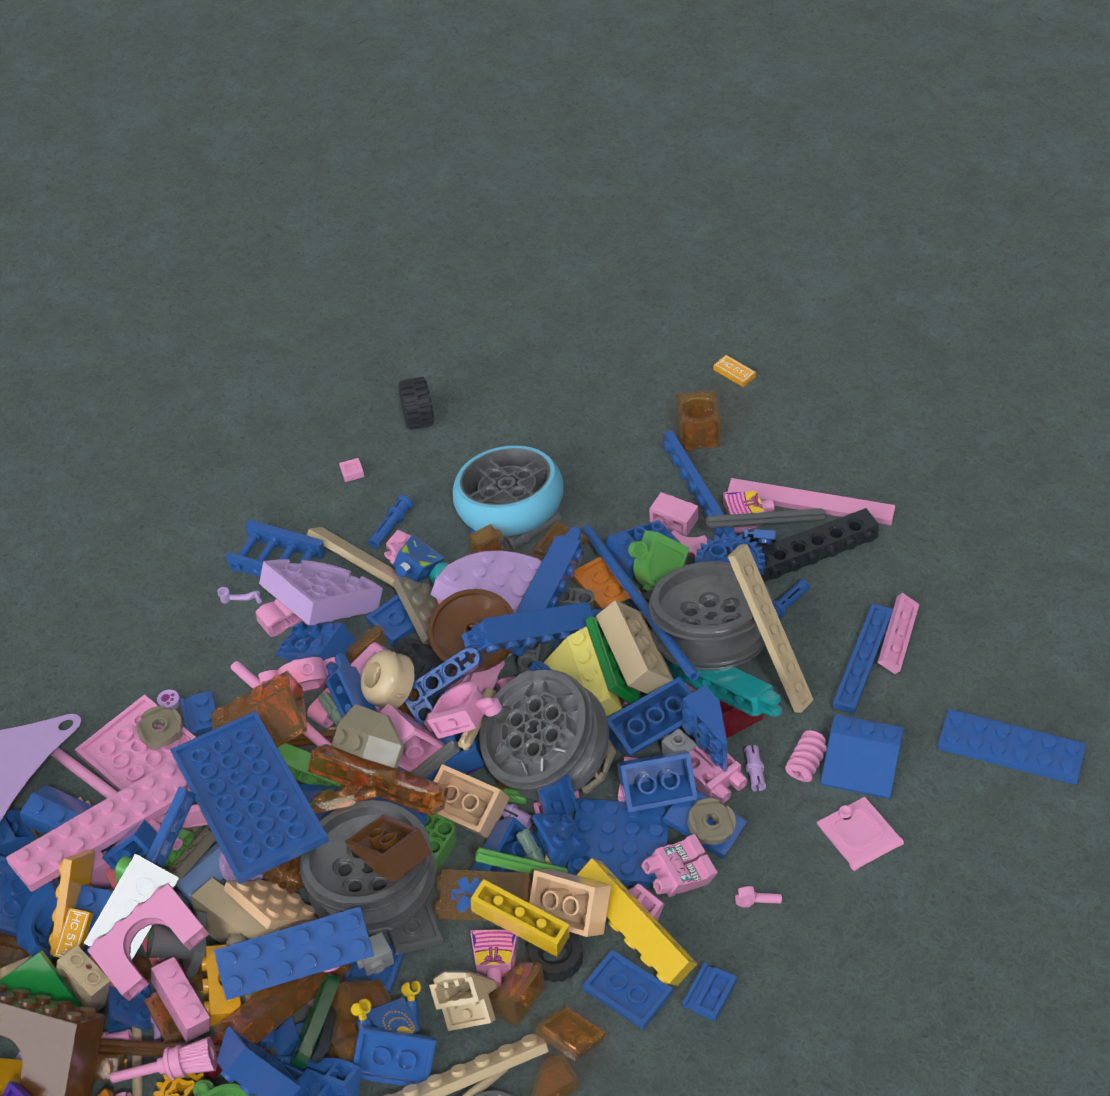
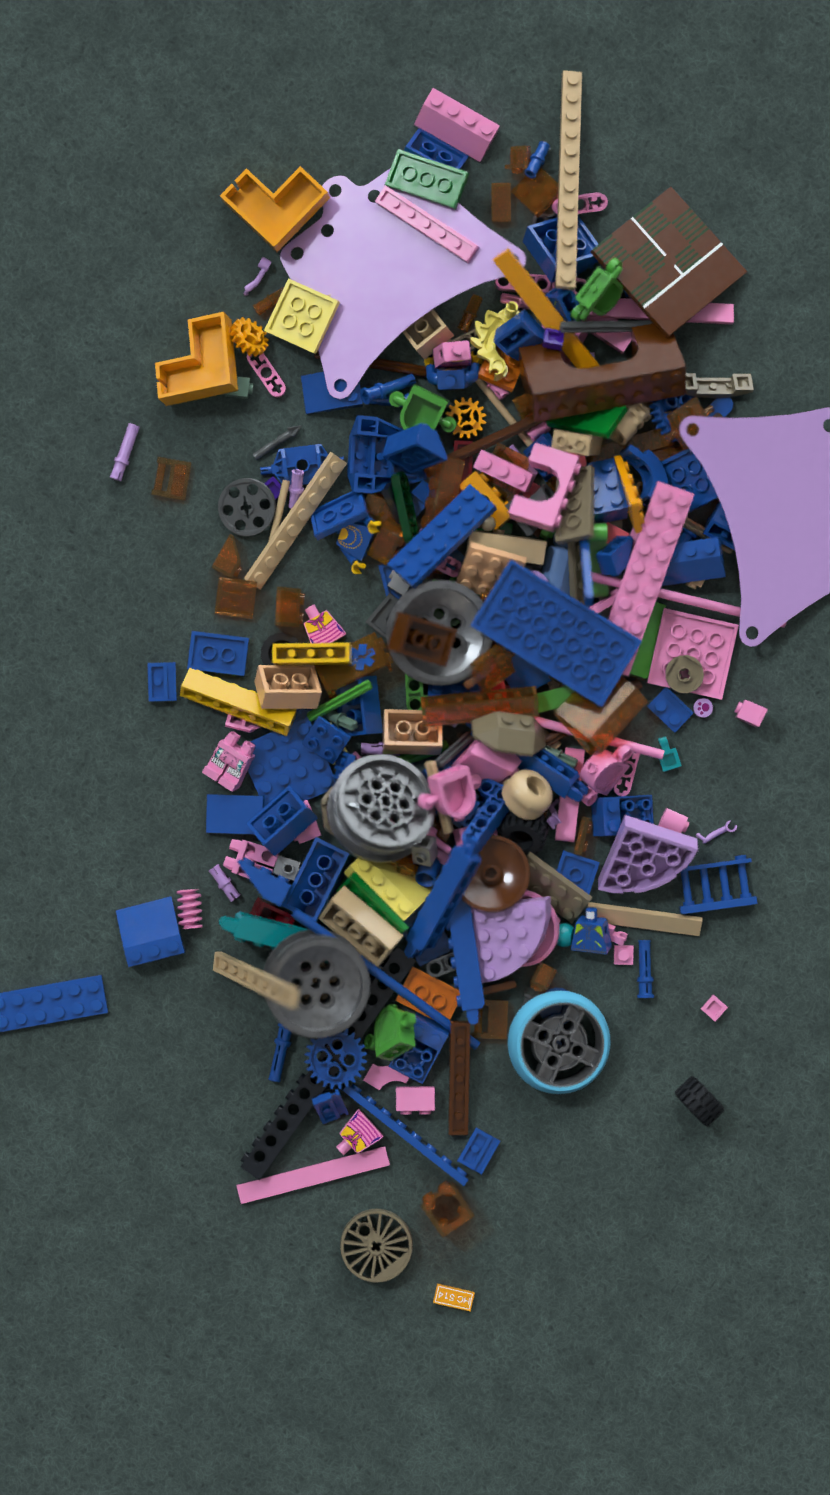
camera: 140 degrees right, 40 degrees up
(73, 931) = (608, 471): light orange tile -> none
(126, 665) = (750, 713): none -> bright pink slope
(176, 1062) = (476, 428): bright pink piece -> none
(231, 678) = (670, 758): none -> teal plate
(463, 998) = (317, 581): tan piece -> none
(620, 507) = (459, 1078): none -> reddish brown plate
(640, 456) = (478, 1150): none -> blue plate
(708, 833) = (216, 811): dark tan plate -> none
(748, 896) = (167, 772): bright pink bar -> none
(764, 518) = (335, 1127): dark grey axle -> none
(784, 427) = (393, 1268): none -> dark tan piece
(862, 659) = (193, 1029): blue plate -> none
(862, 836) = (120, 864): bright pink container -> none
(898, 633) = (177, 1066): bright pink plate -> none

